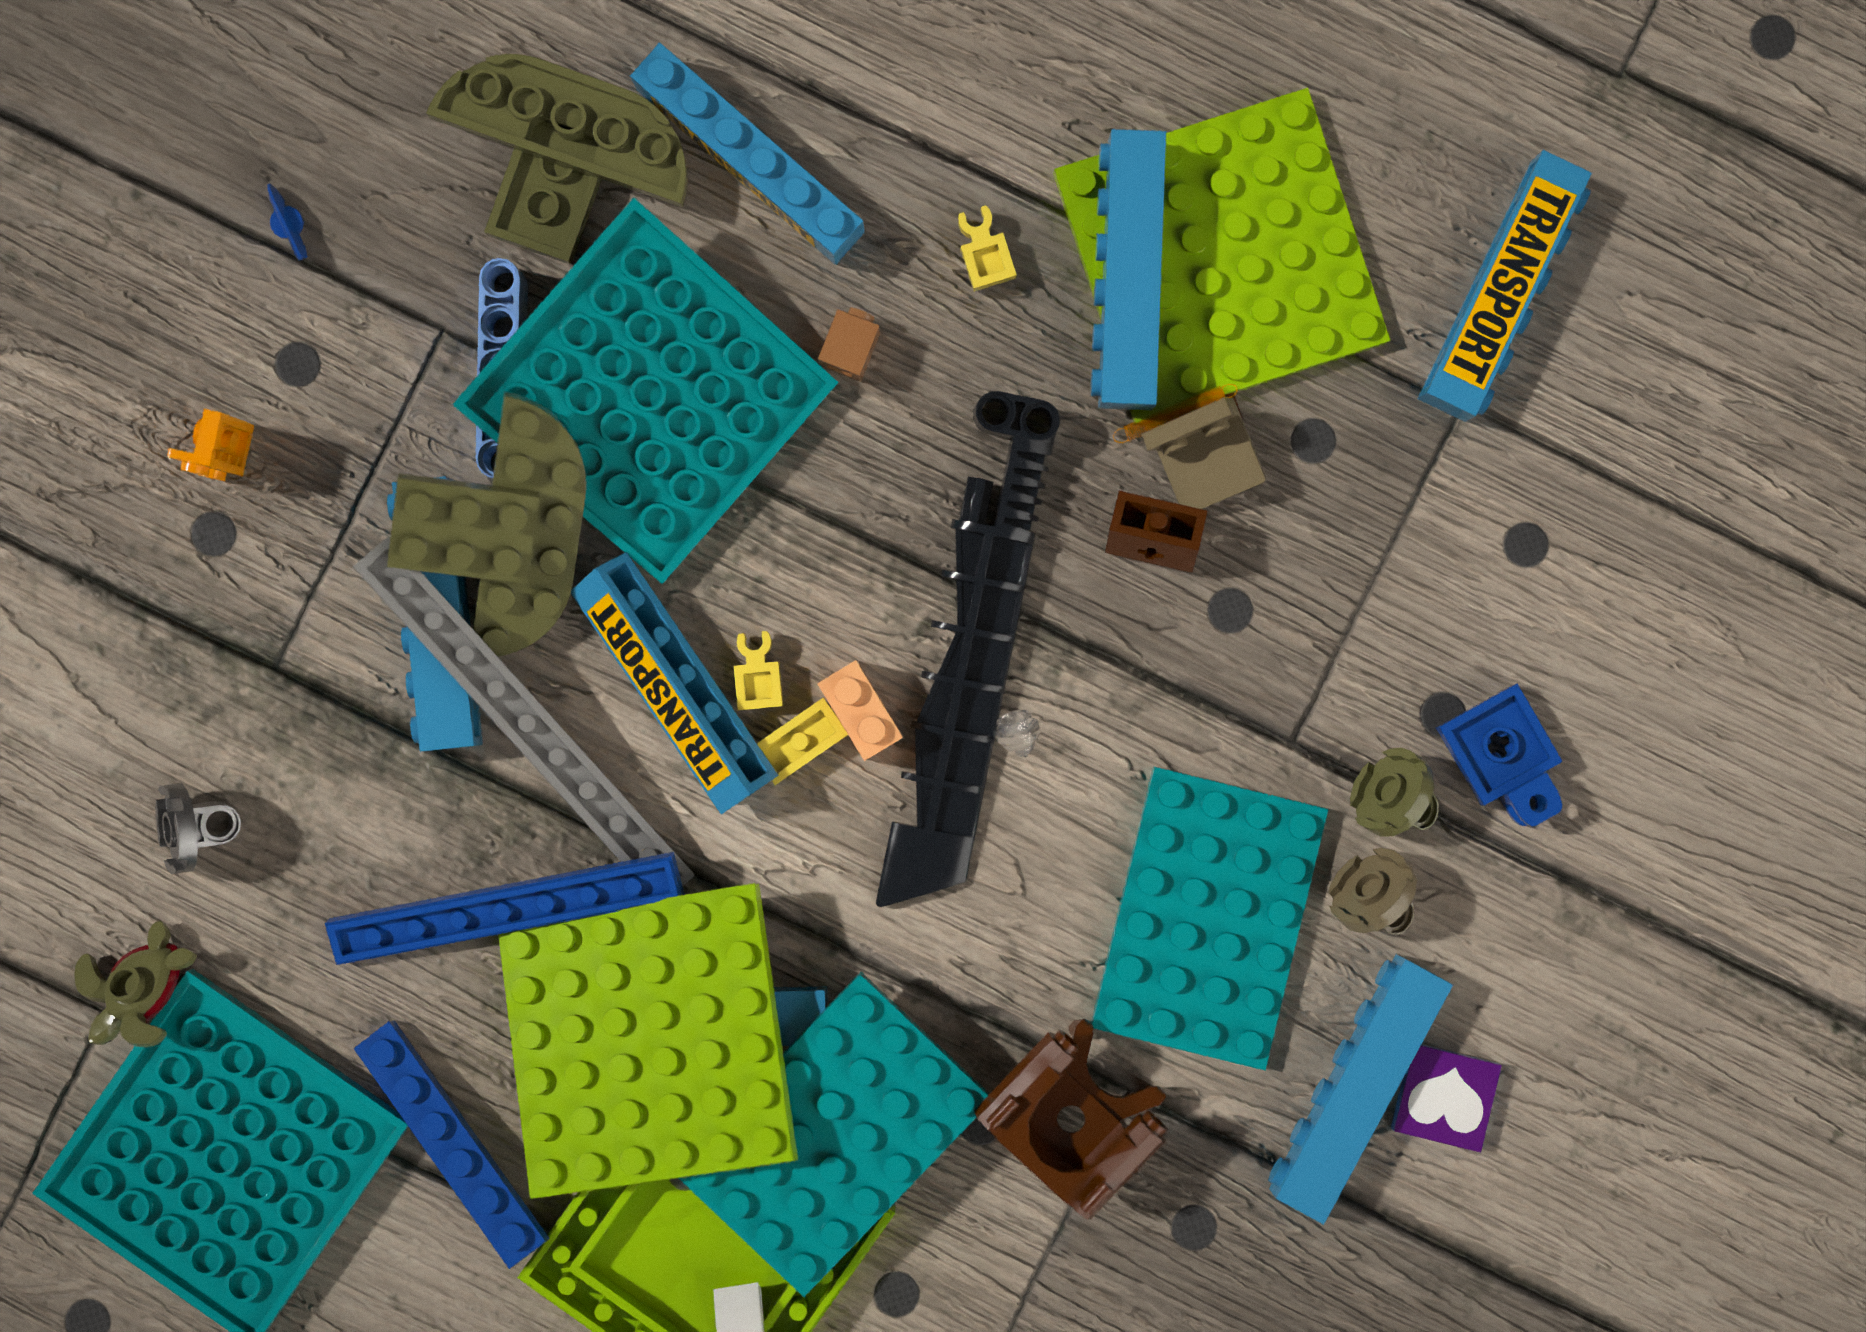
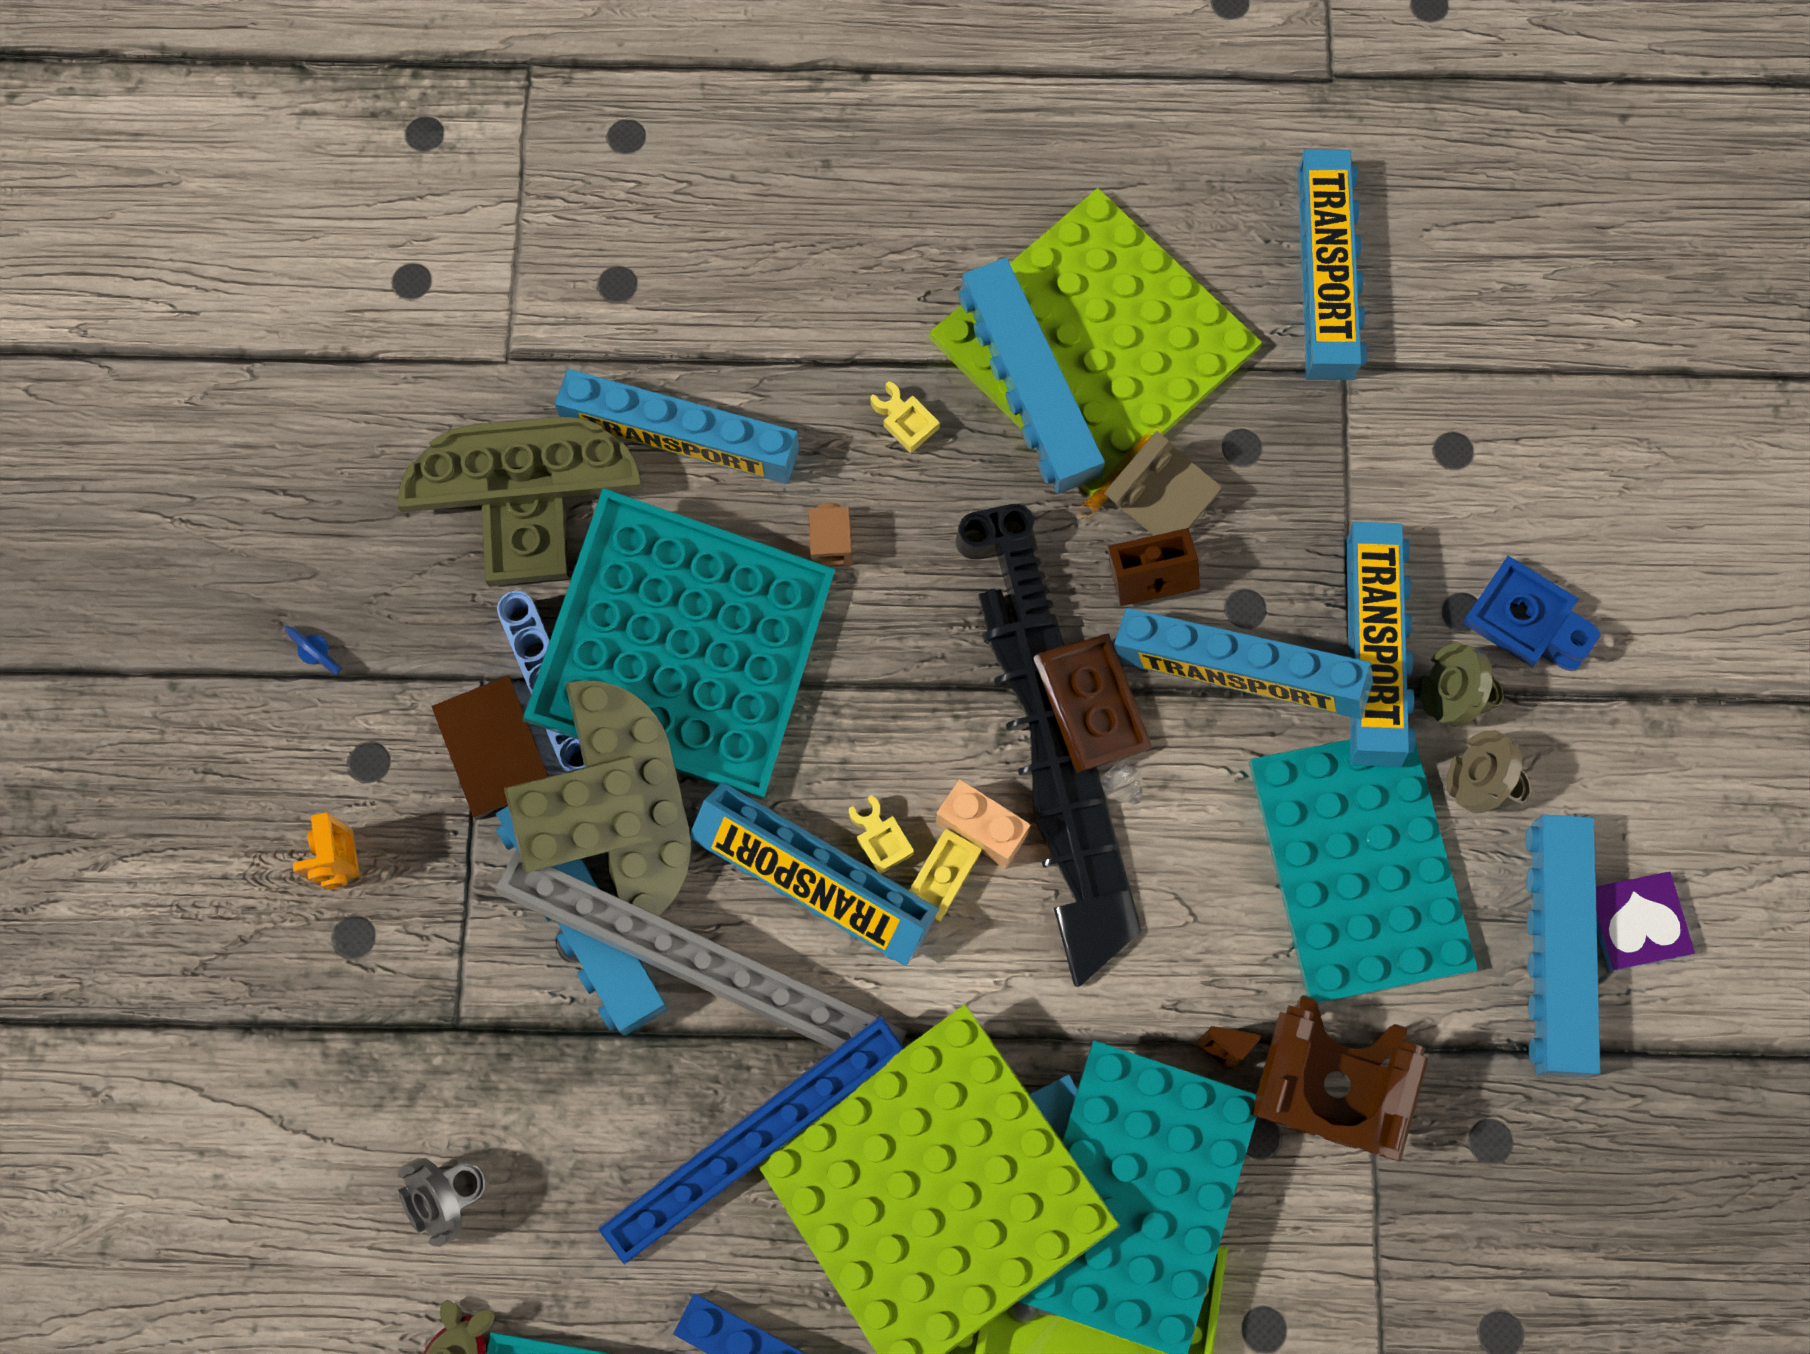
camera: 25 degrees left, 15 degrees down
(414, 408) = (489, 744): none -> reddish brown tile
(990, 1037) = (1227, 1045): none -> reddish brown slope
(1026, 640) = (1092, 702): none -> reddish brown tile
(1191, 676) = (1244, 663): none -> dark azure brick
(1337, 714) = (1379, 636): none -> brick

